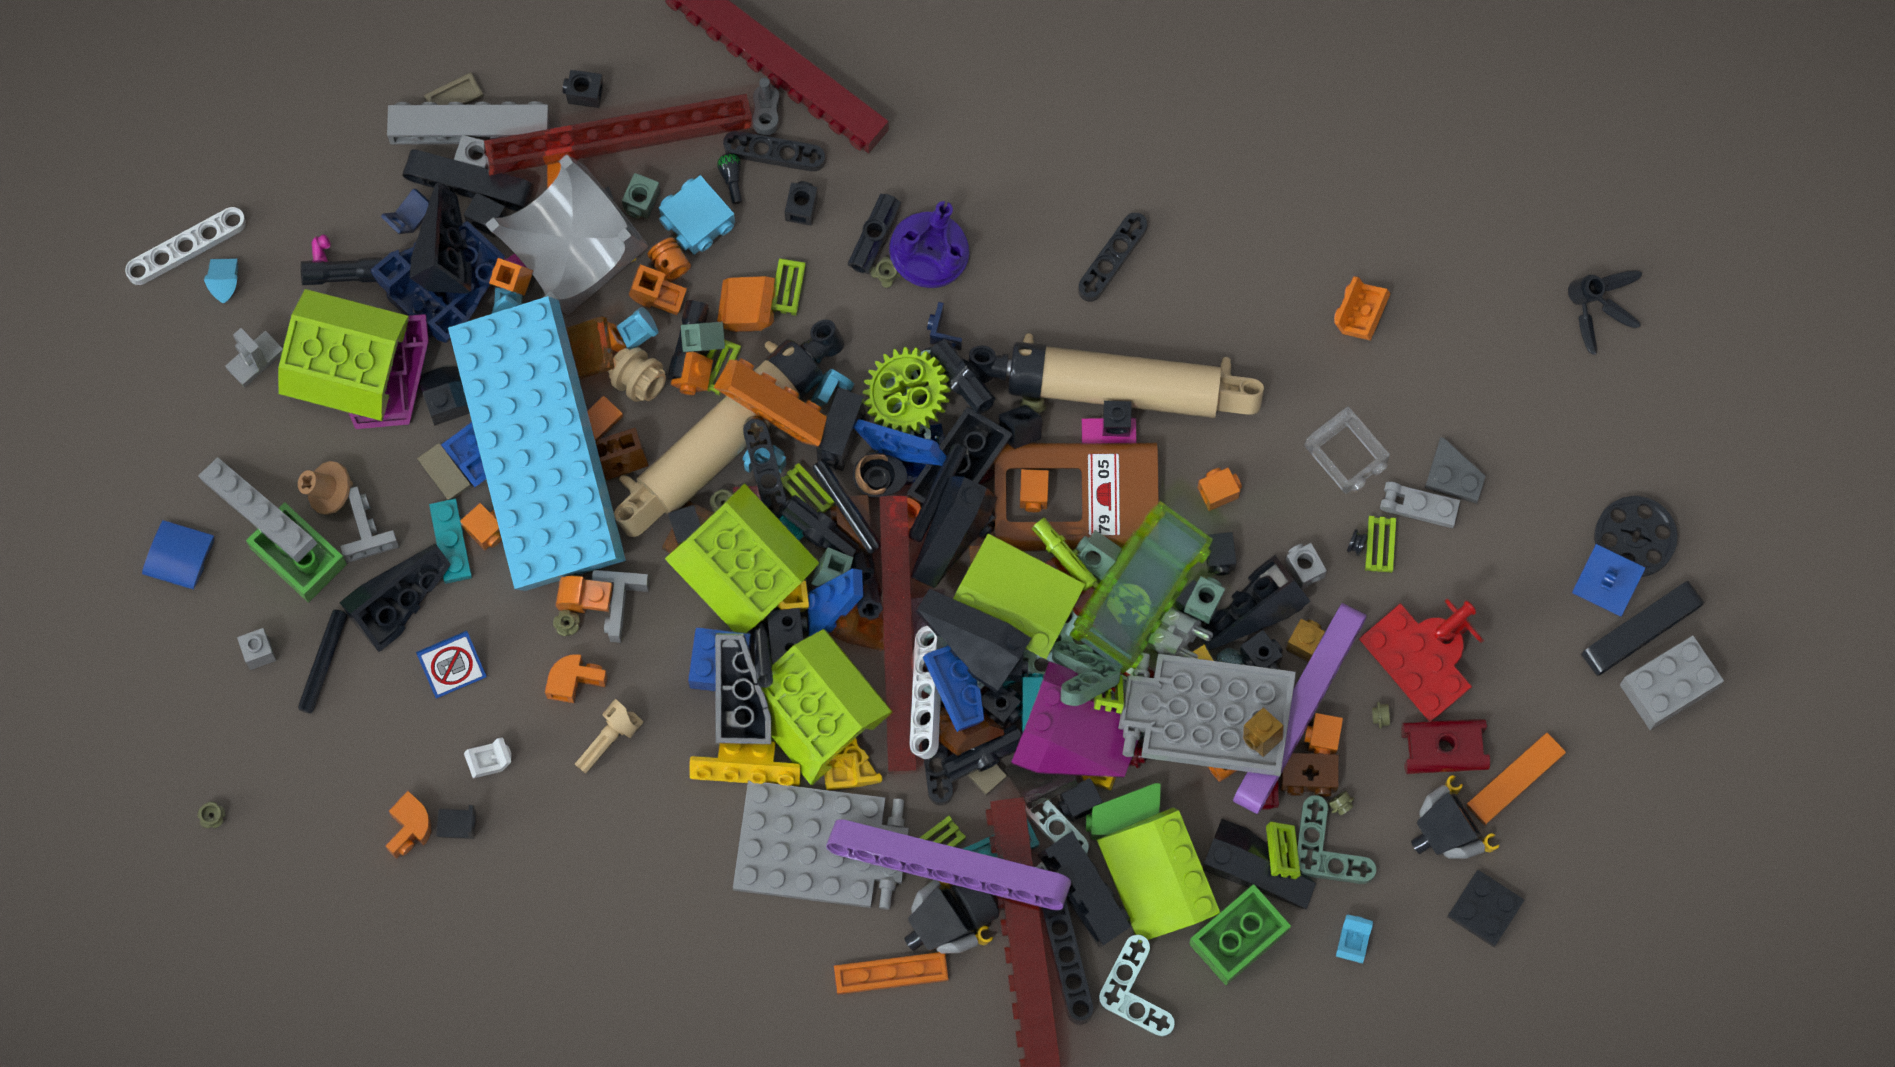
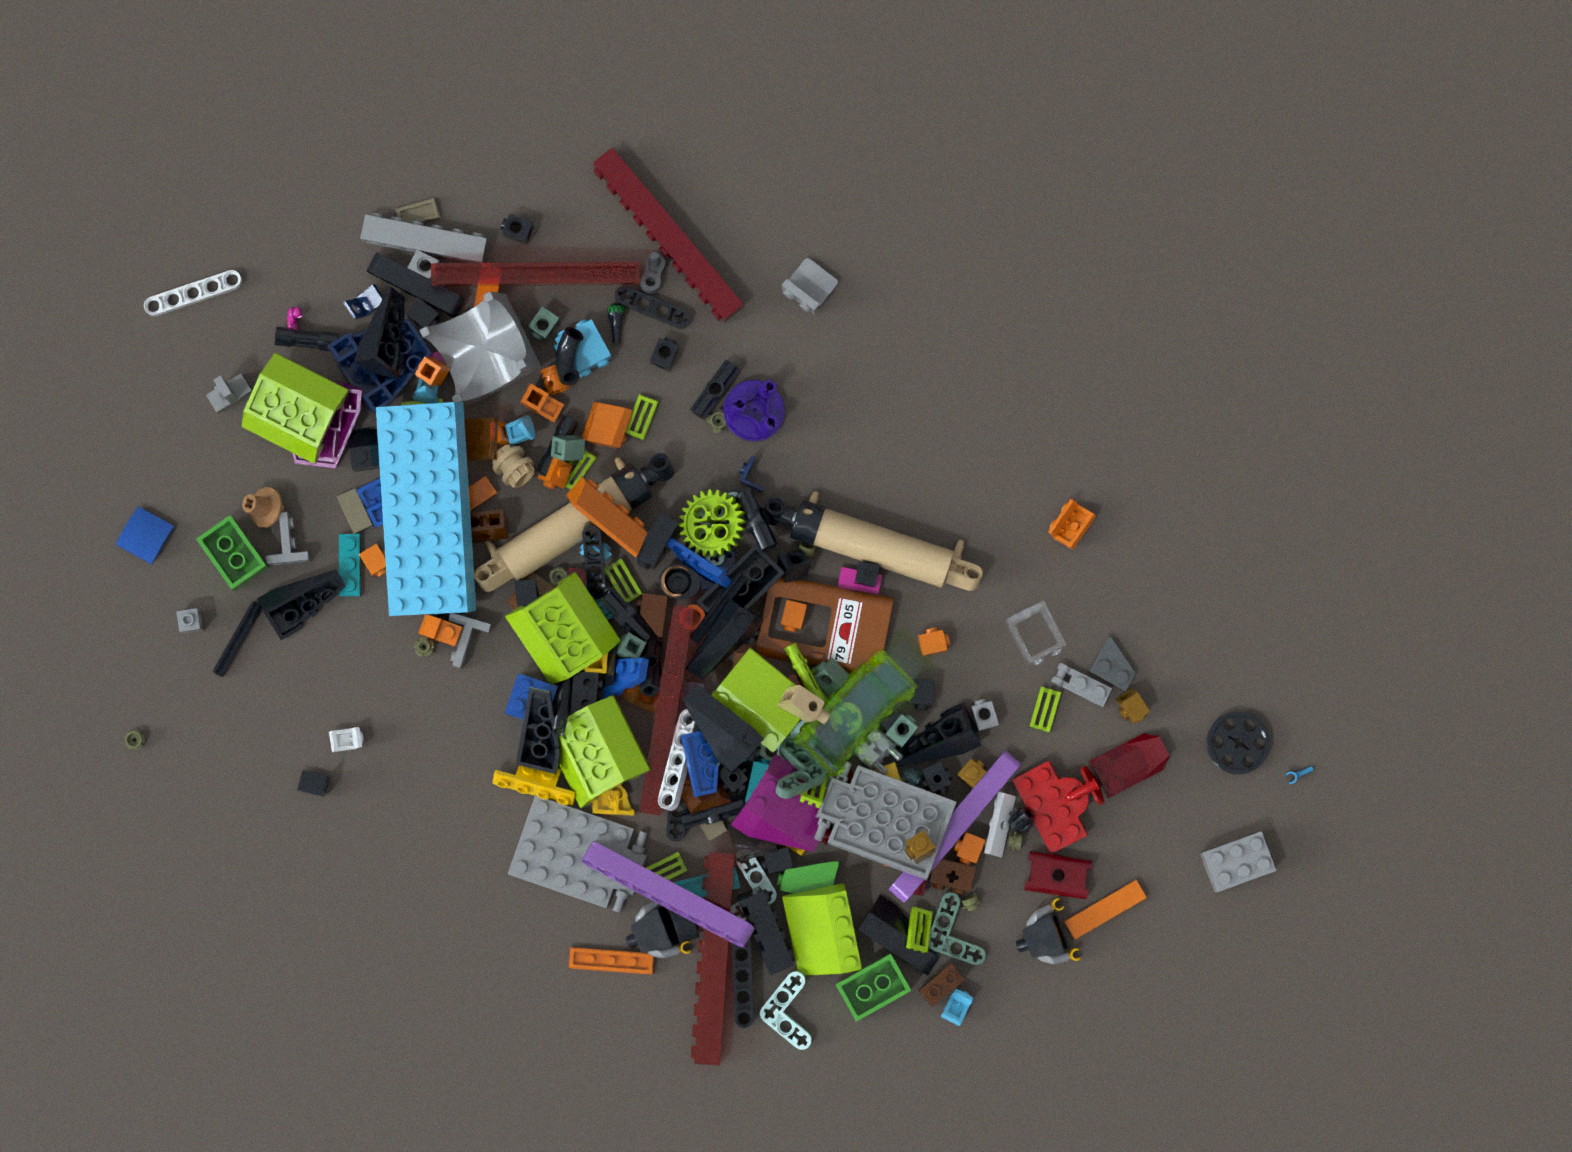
camera: 10 degrees right, 10 degrees up
(222, 278) = (215, 325): medium azure tile -> none
(257, 509) = (208, 516): light grey plate -> none
(415, 822) = (283, 776): orange brick -> none
(451, 664) = (331, 662): piece -> none
(566, 675) = (416, 686): orange brick -> none
(618, 722) = (447, 733): tan piece -> none
(678, 222) = (567, 354): none -> black cylinder
(813, 598) = (609, 675): none -> black sticker
(827, 385) = (655, 502): medium azure tile -> none
(846, 506) = (649, 603): black axle -> none
(966, 86) = (809, 286): none -> light grey bracket
(1072, 586) = (803, 704): none -> tan torso
(1110, 255) = (894, 445): black beam -> none
(1327, 915) = (941, 985): none -> reddish brown brick
(1356, 697) = (999, 824): none -> white tile
(1357, 542) = (1027, 705): black bush -> none
(1382, 685) = (1021, 819): none -> black gear
(1485, 908) = (1060, 1002): black plate -> none
(1491, 516) = (1132, 706): none -> pearl gold brick
(1505, 589) = (1130, 763): none -> dark red slope
(1590, 289) = (1249, 545): black plant -> none
(1608, 580) = (1209, 772): blue piece -> none
(1642, 628) = (1226, 815): black beam -> none
(1721, 560) = (1299, 773): none -> dark azure hand

